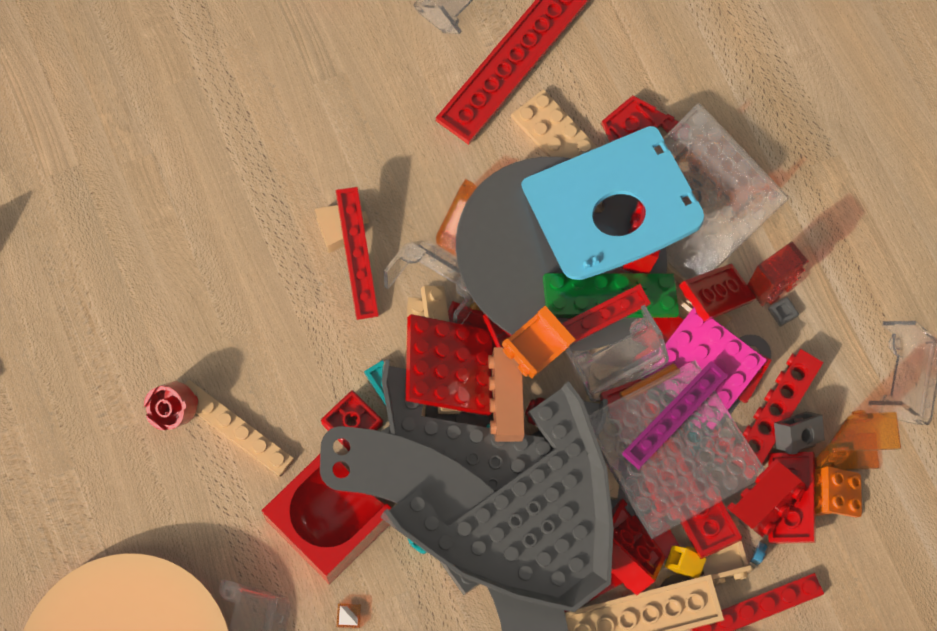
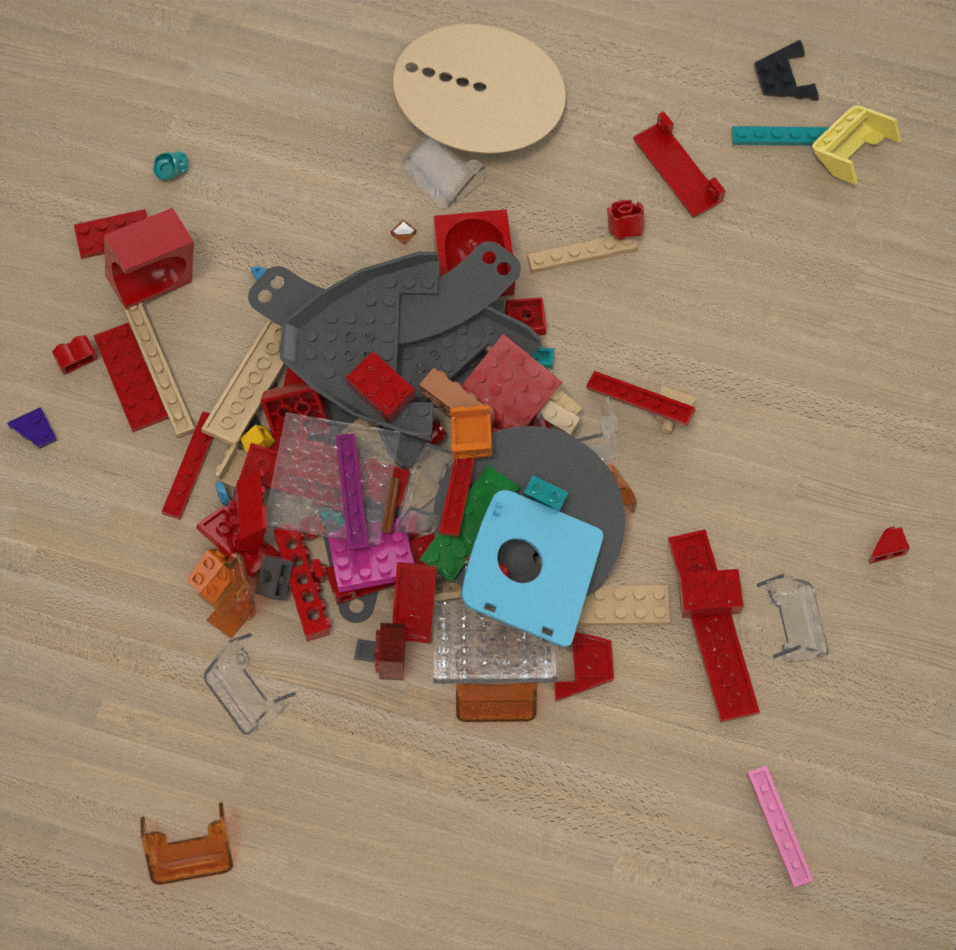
camera: 130 degrees right, 5 degrees down
(65, 408) = (678, 168): none -> red bracket
(496, 67) = (710, 593): none -> red brick
(534, 245) = (545, 493): none -> teal brick
(561, 461) = (380, 386): none -> red brick
(753, 405) = (320, 571): none -> red plate

